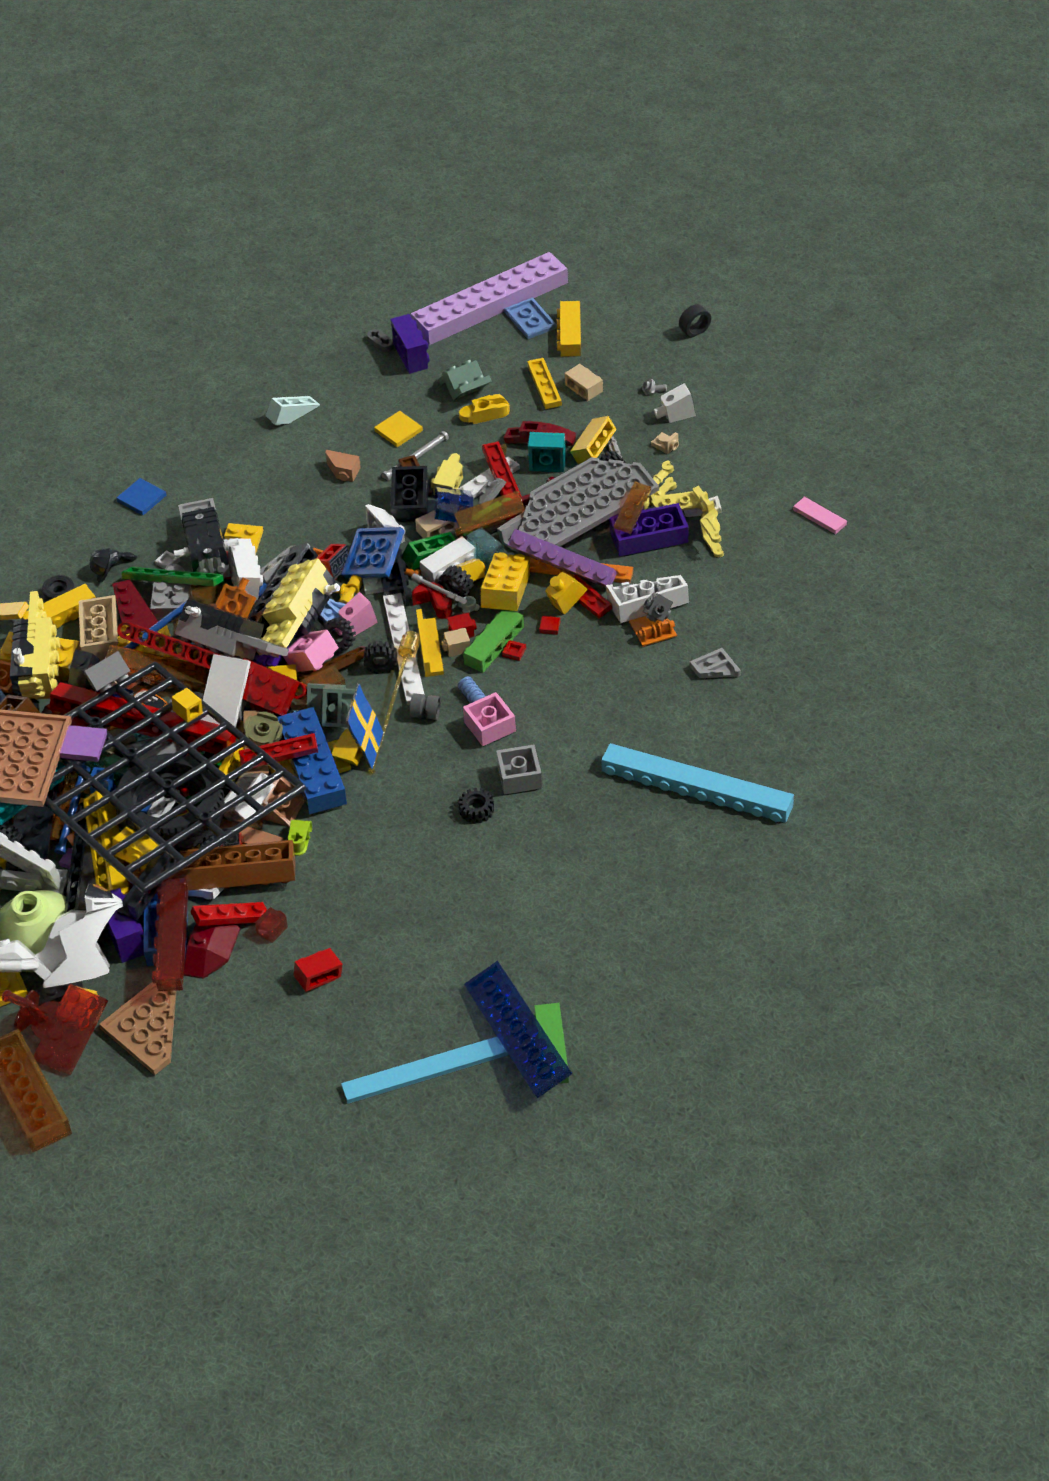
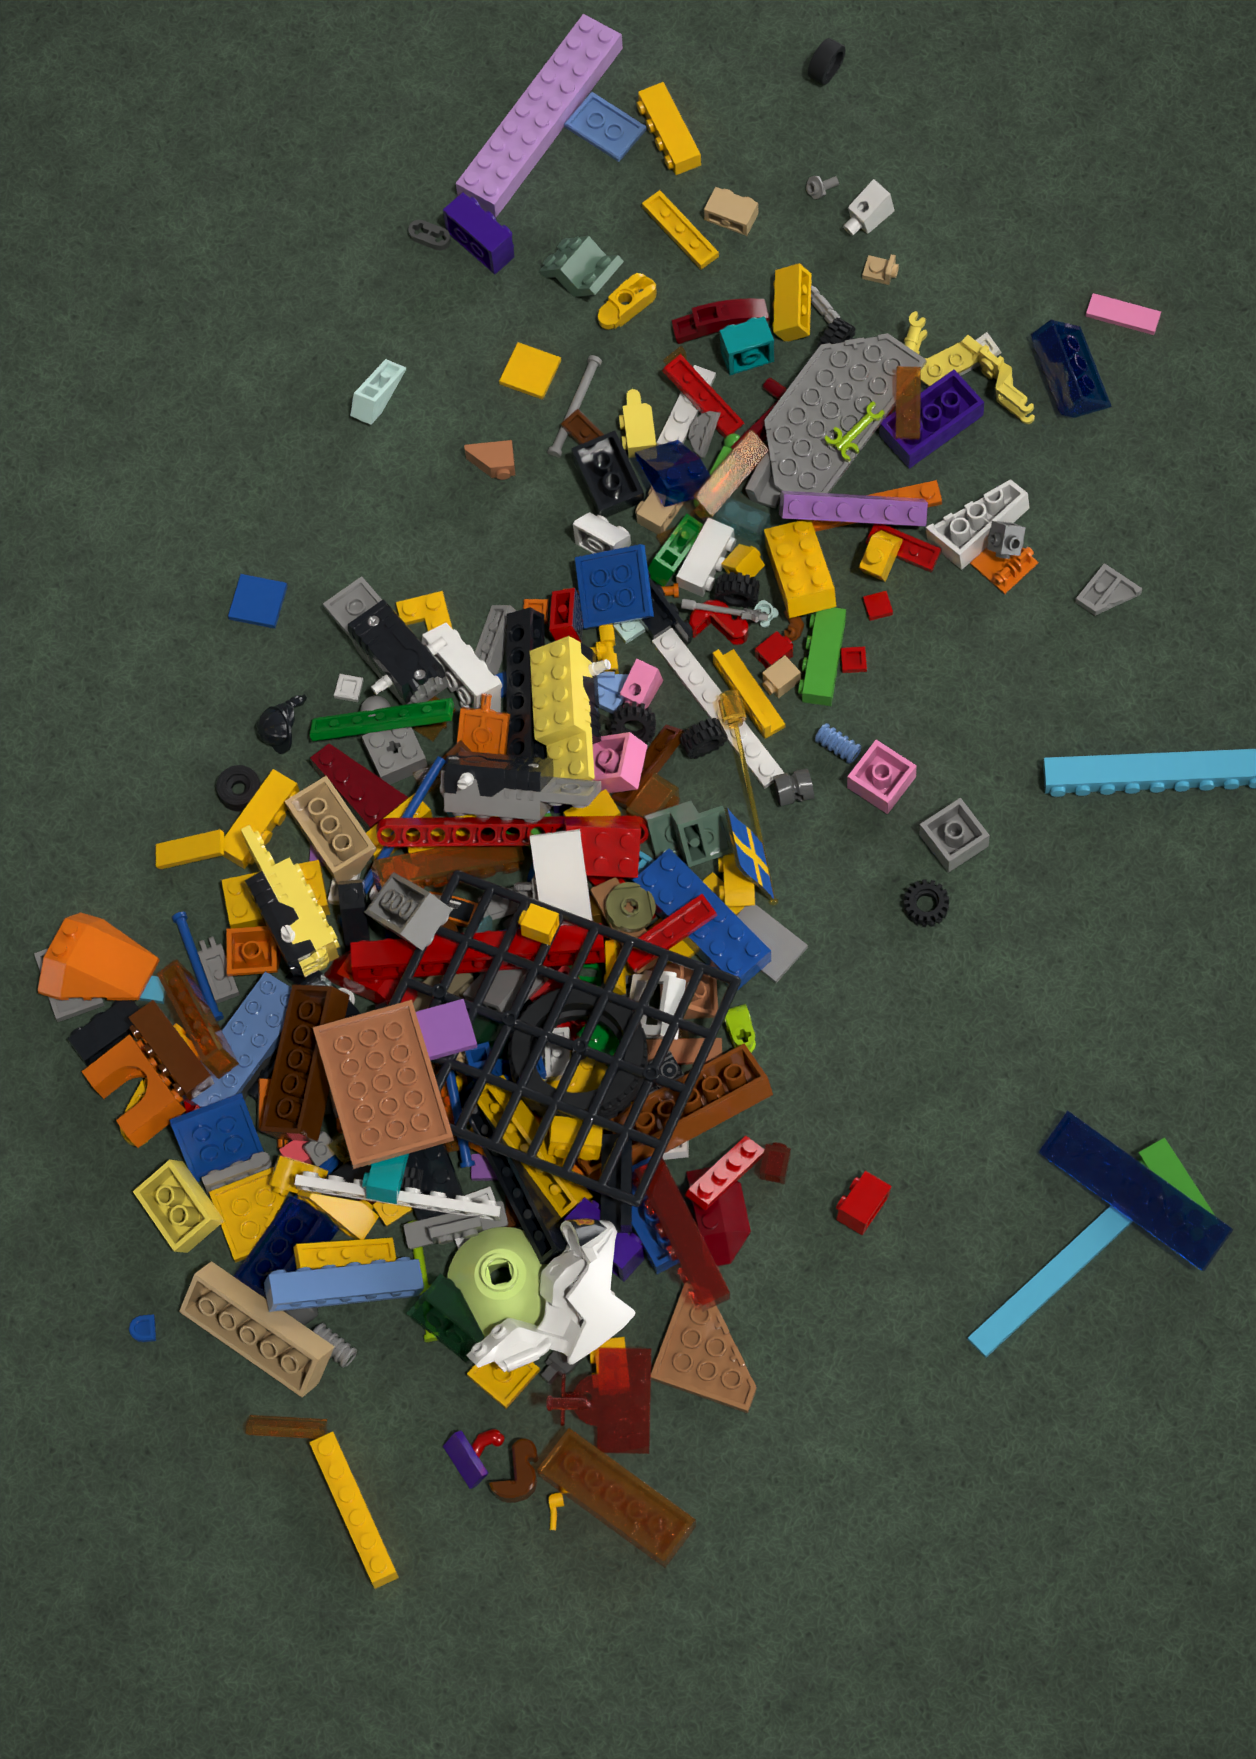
camera: 20 degrees left, 20 degrees up
(357, 792) = (783, 944): none -> light grey tile
(485, 619) = (795, 627): none -> dark orange arm
(578, 519) = (843, 443): none -> lime bar
(763, 532) = (1070, 369): none -> clear blue slope

